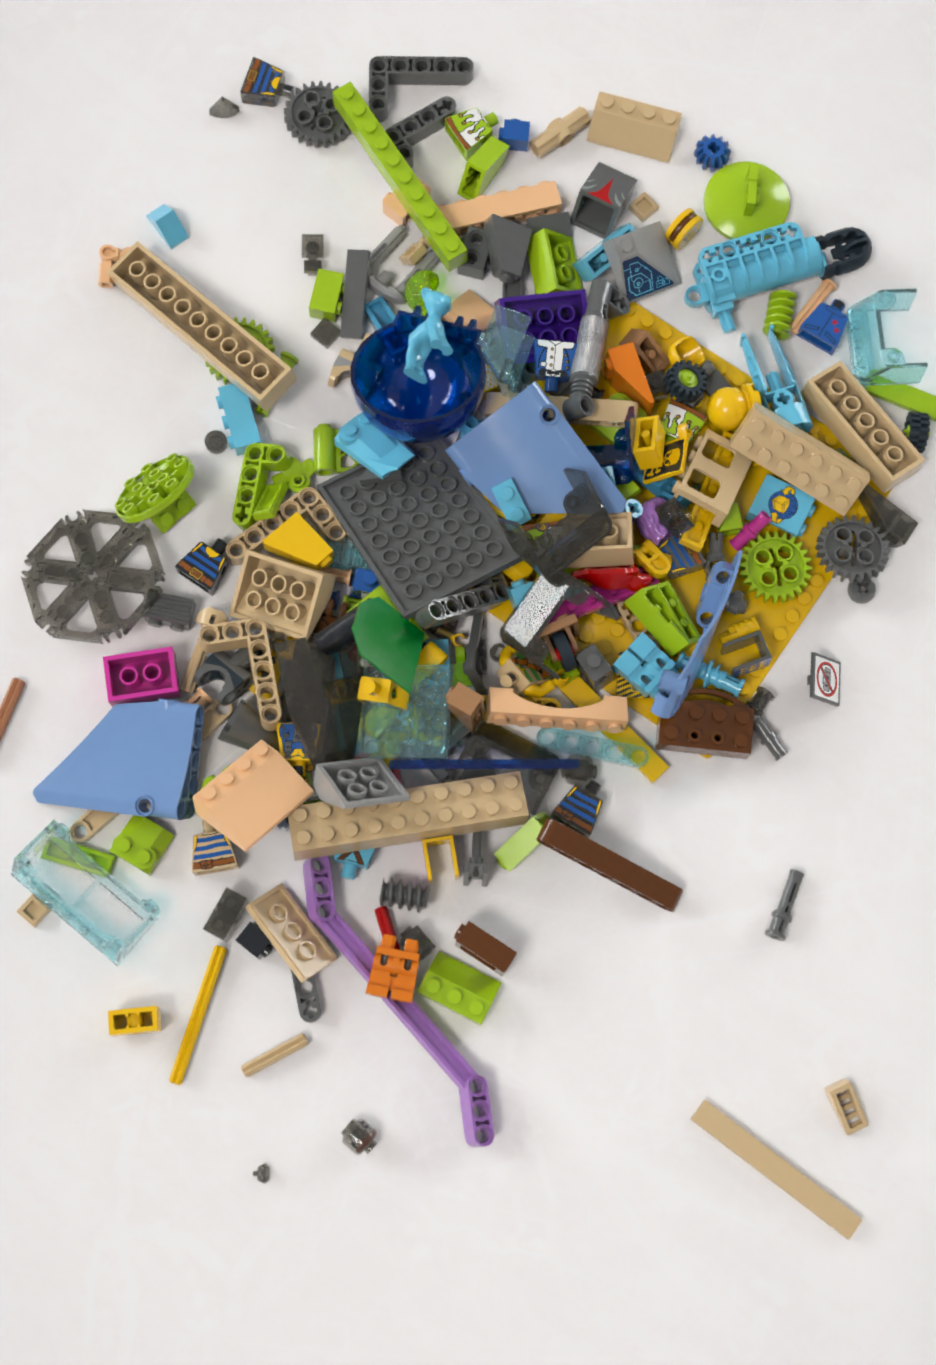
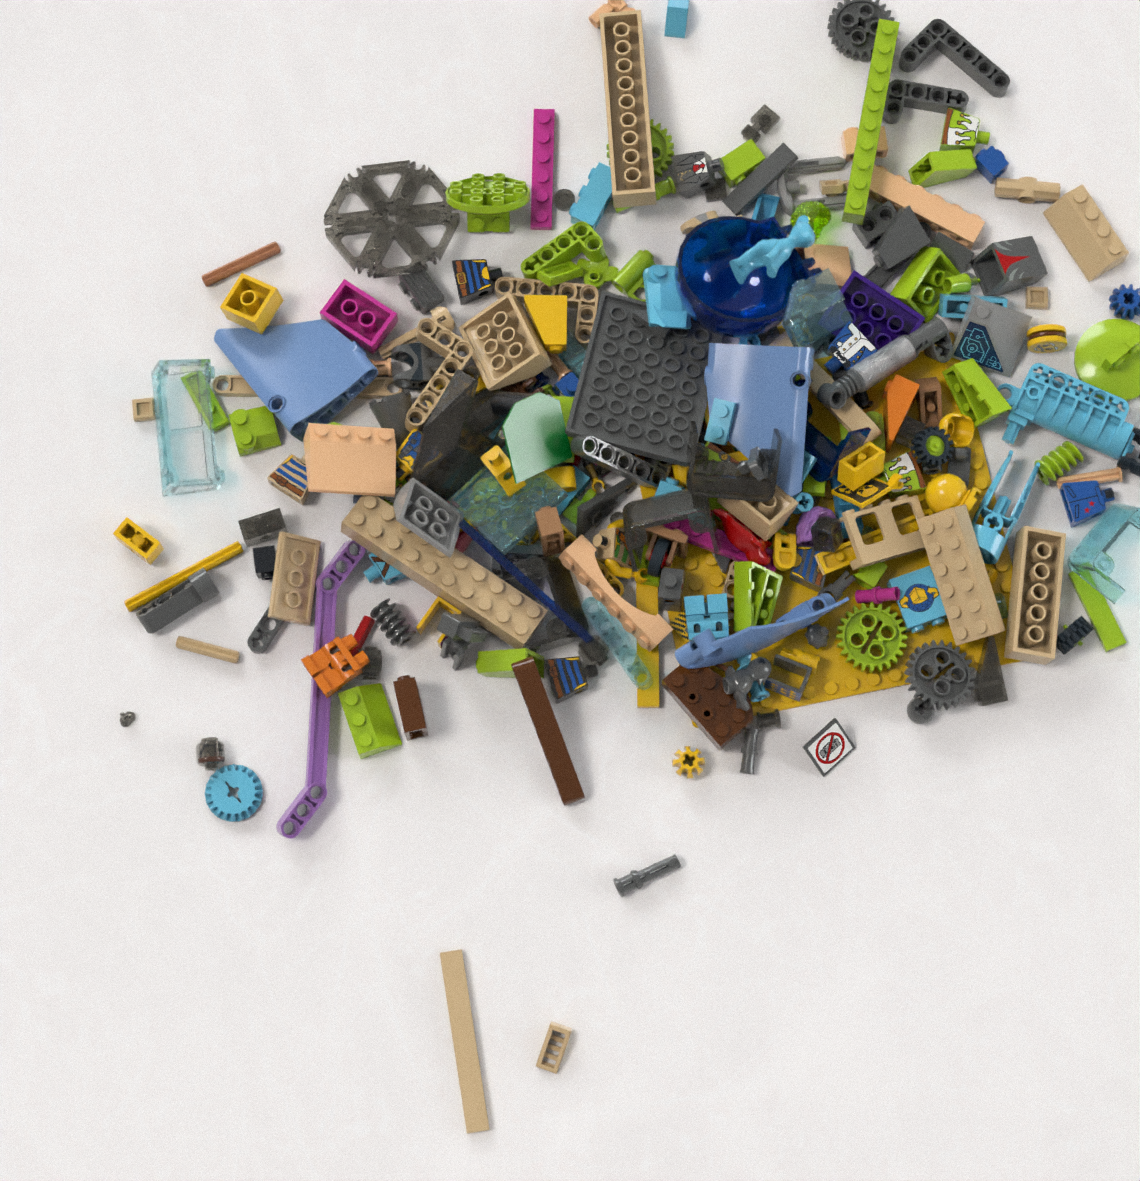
camera: 50 degrees right, 0 degrees up
(43, 744) = (251, 303): none -> yellow brick
(175, 432) = (542, 169): none -> dark pink plate
(214, 1040) = (177, 601): none -> dark grey beam
(300, 330) = (695, 172): none -> dark grey torso
(393, 1160) = (249, 793): none -> medium azure gear
(468, 846) = (461, 627): none -> dark grey piece
(573, 508) = (756, 464): none -> dark grey piece
(581, 241) = (960, 283): none -> lime piece
(673, 314) = (975, 392): none -> lime wedge
(720, 689) = (741, 681): none -> dark grey animal
(726, 789) = (690, 756): none -> yellow piece

